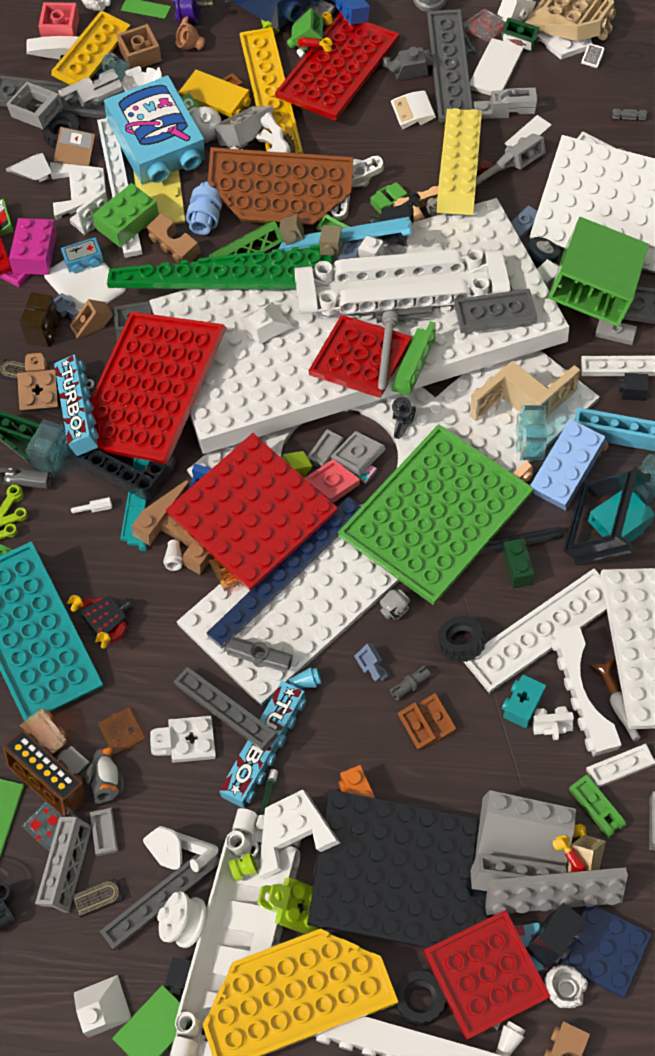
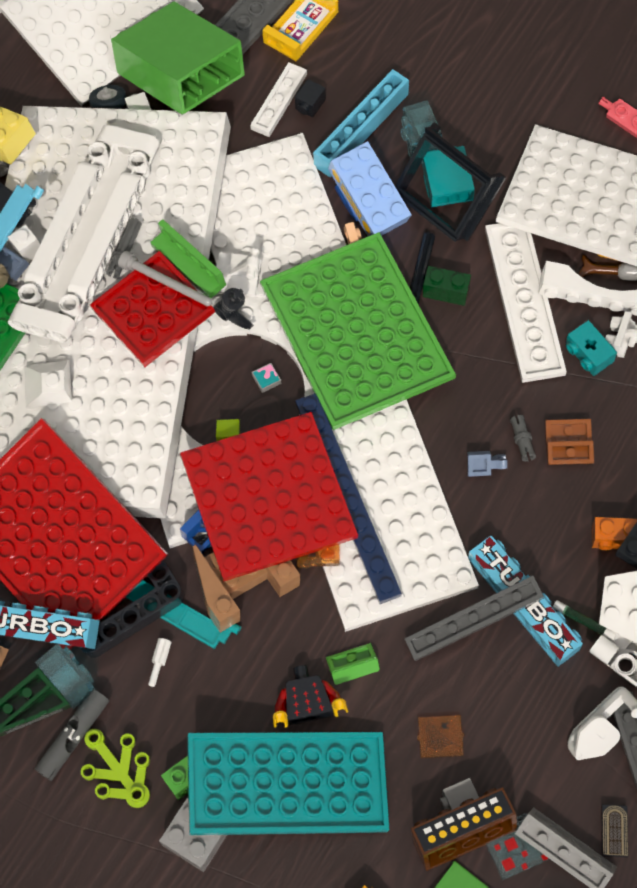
camera: 65 degrees left, 5 degrees up
(45, 731) = (404, 812): clear orange bracket -> none
(104, 776) = (489, 770): dark grey animal -> none
(104, 832) = (545, 797): light grey tile -> none
(152, 640) = (352, 664): none -> bright green slope
(173, 558) = (267, 601): white cone -> none
(173, 740) = (479, 684): white plate -> none
(272, 658) = (422, 569): dark grey piece -> none
(307, 679) = (473, 530): medium azure cone -> none
(325, 448) = (218, 401): light grey tile -> none
(333, 480) = (263, 407): coral tile -> none
(358, 452) = (244, 372): light grey tile -> none
(394, 604) = (434, 413): light grey head -> none
(437, 407) = (240, 271): none -> white plate
(462, 625) = (497, 354): black tyre -> none
(495, 310) = (172, 164): dark grey plate -> none
(521, 389) = (272, 188): tan bracket -> none
(524, 221) = (57, 95): sand blue plate -> none
(531, 432) = (321, 202): clear light blue brick -> none
(623, 334) = (239, 87): light grey plate -> none

